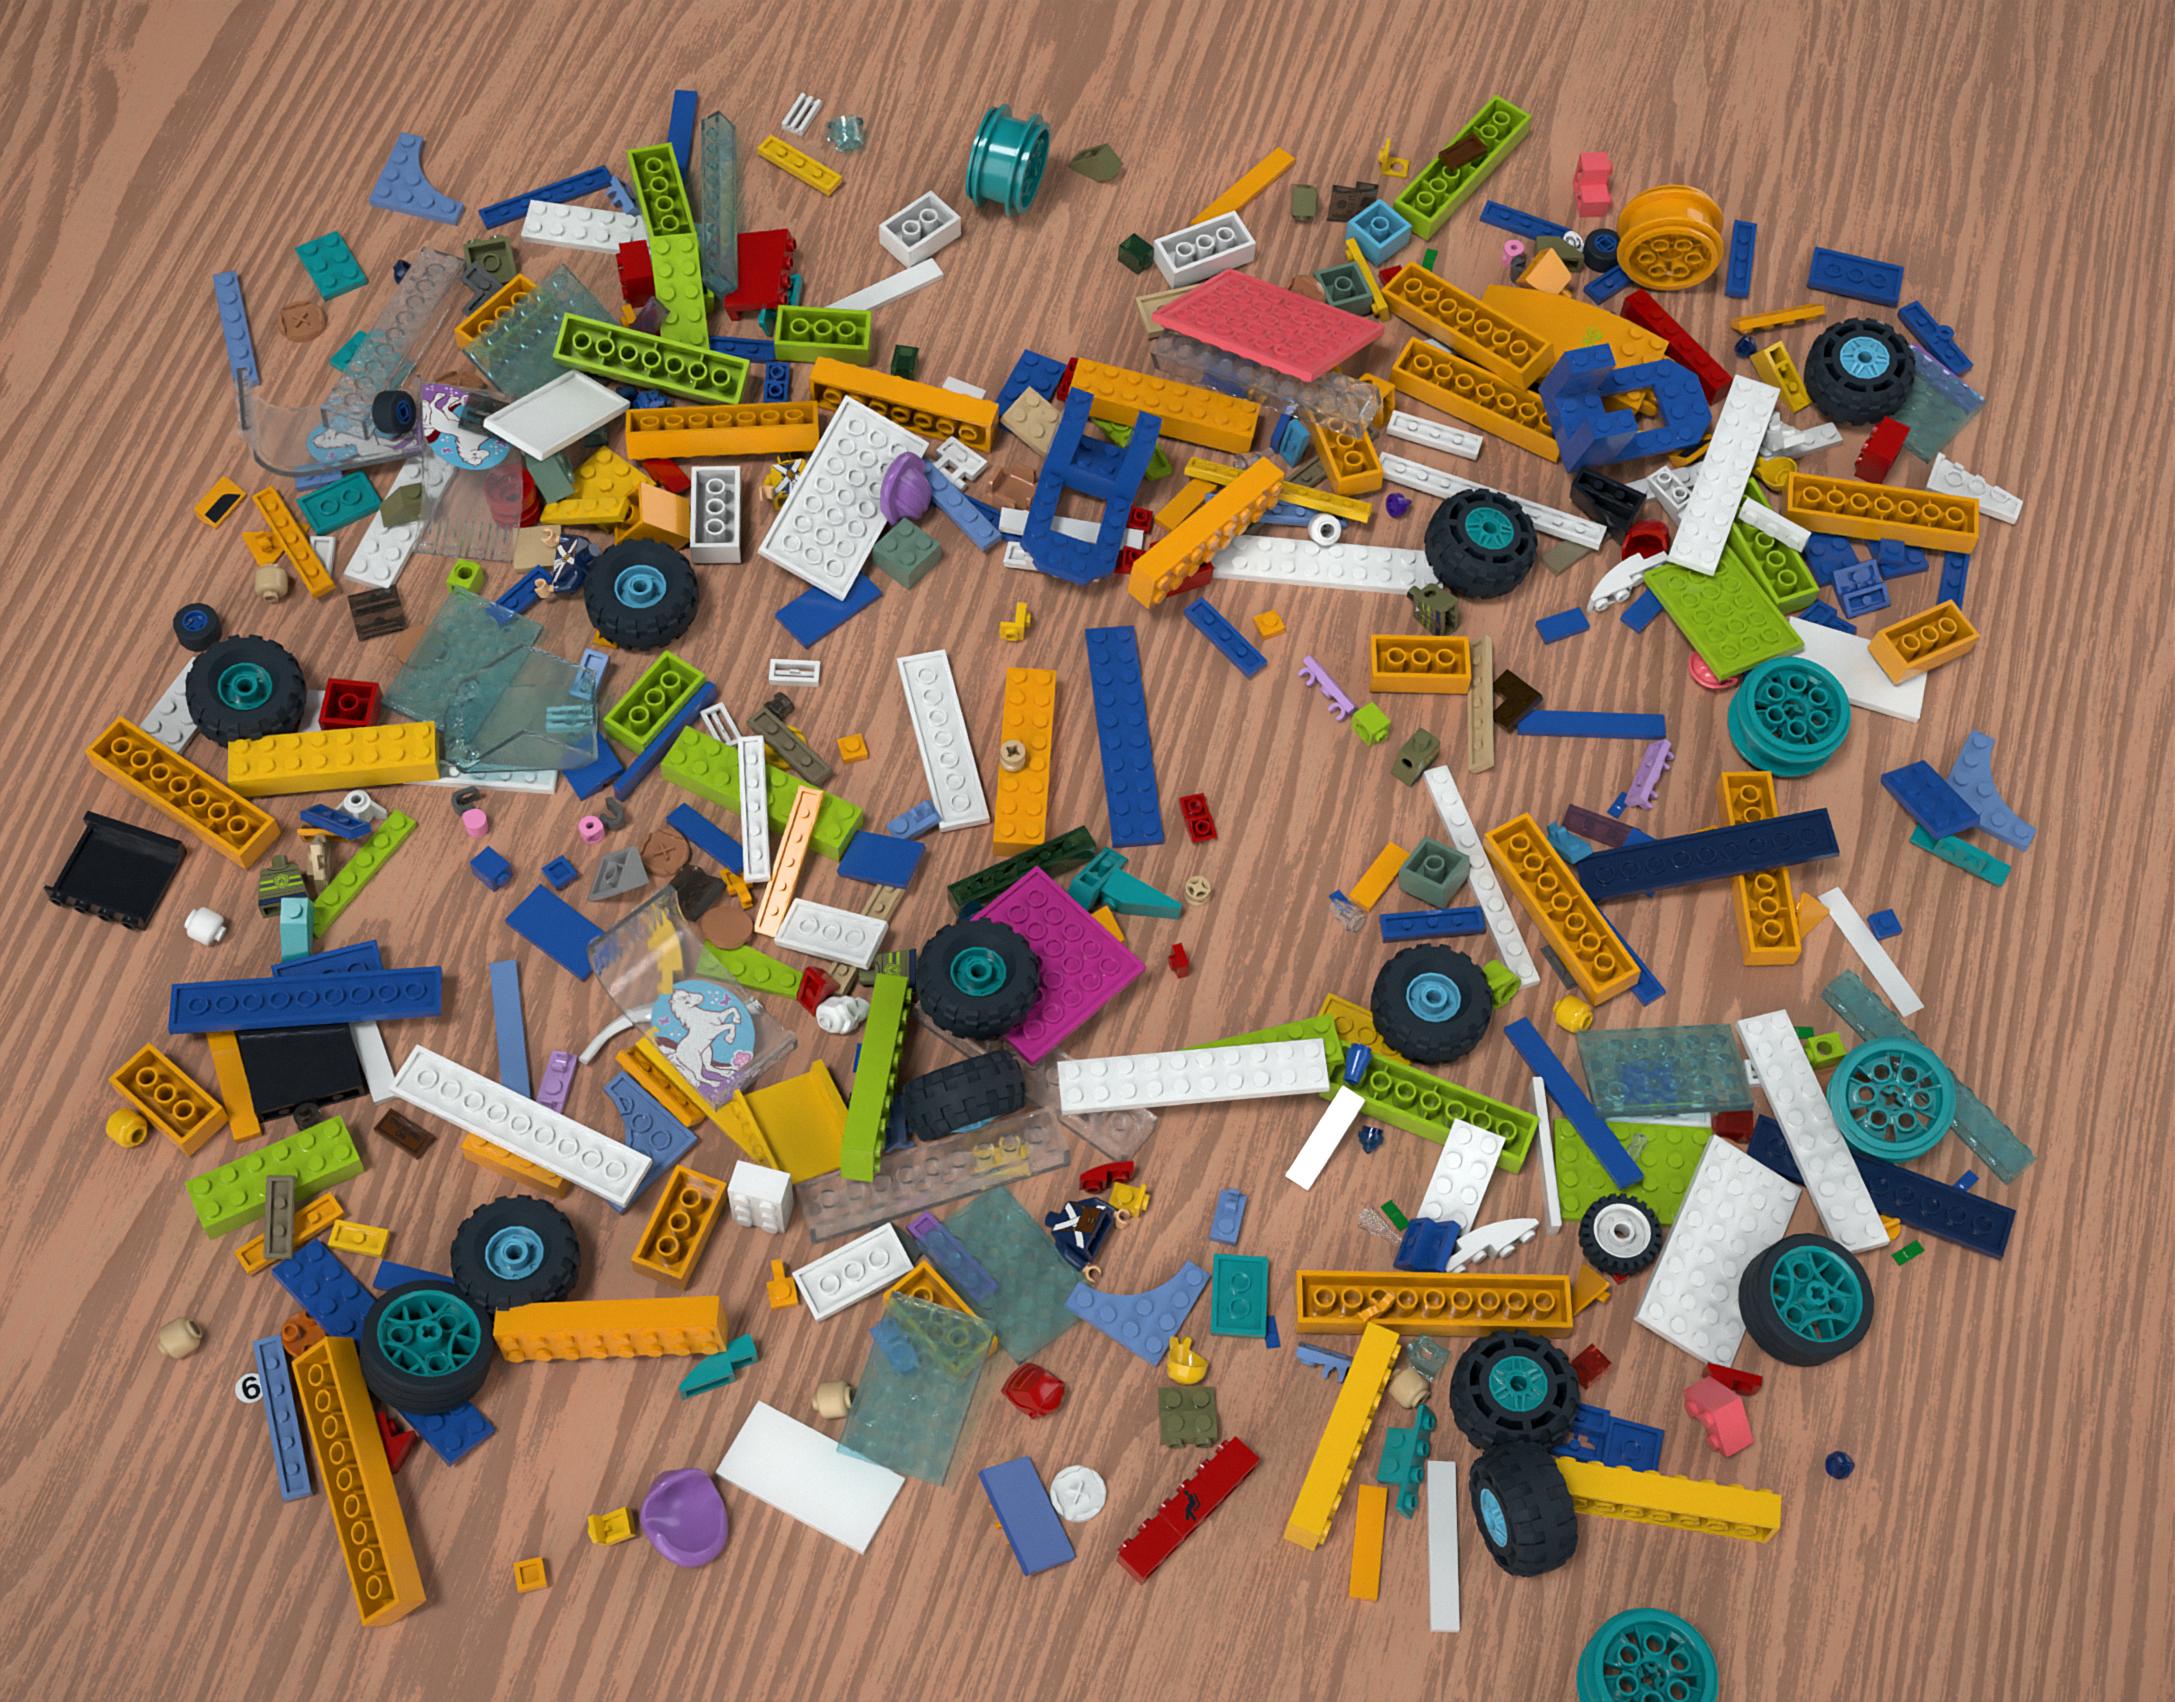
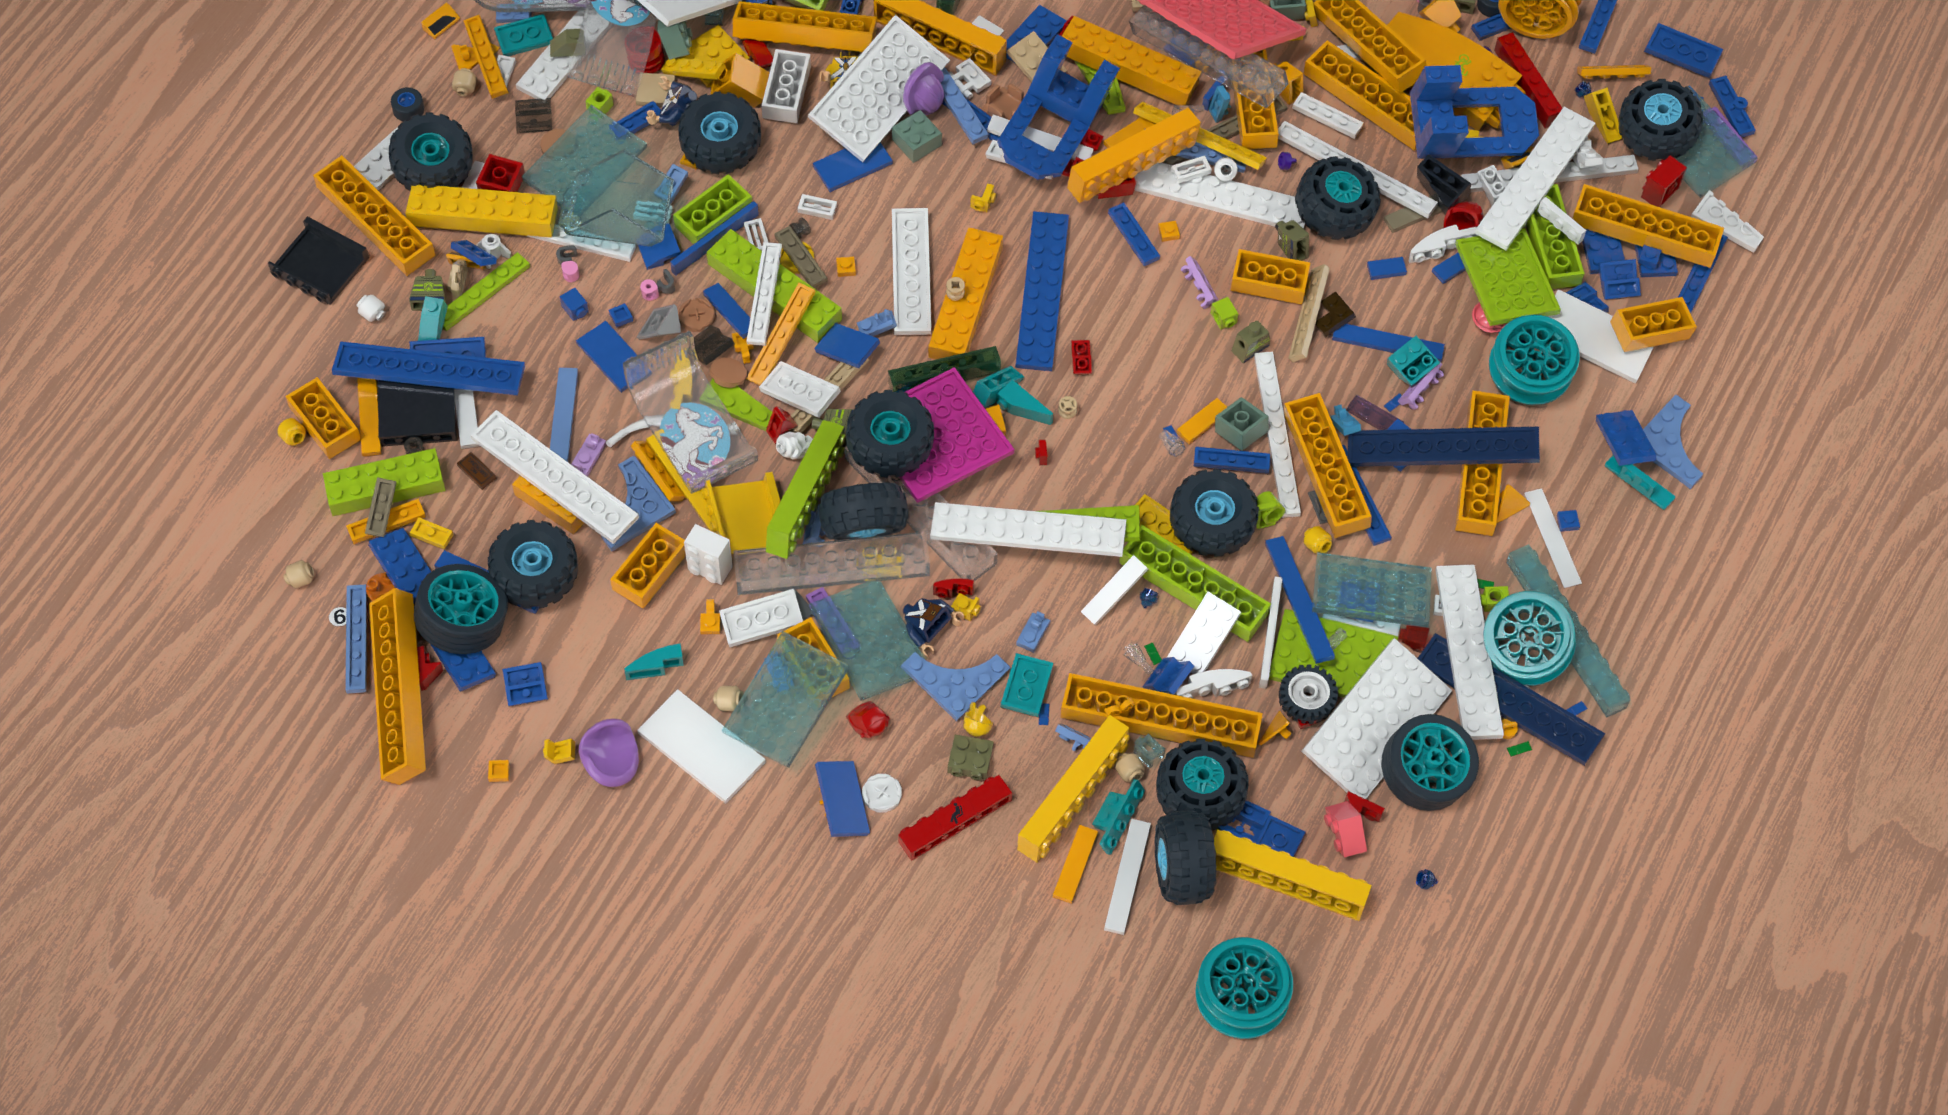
camera: 15 degrees right, 0 degrees up
(540, 1436) = (524, 684): none -> blue slope
(612, 1328) = (587, 621): light orange brick -> none
(1281, 540) = (1192, 171): none -> white tile
(1357, 1060) = (1148, 540): blue cone -> none
(1590, 1366) = (1262, 778): clear red brick -> none
(1633, 747) = (1412, 361): none -> teal slope
(1774, 471) = (1575, 182): yellow piece -> none

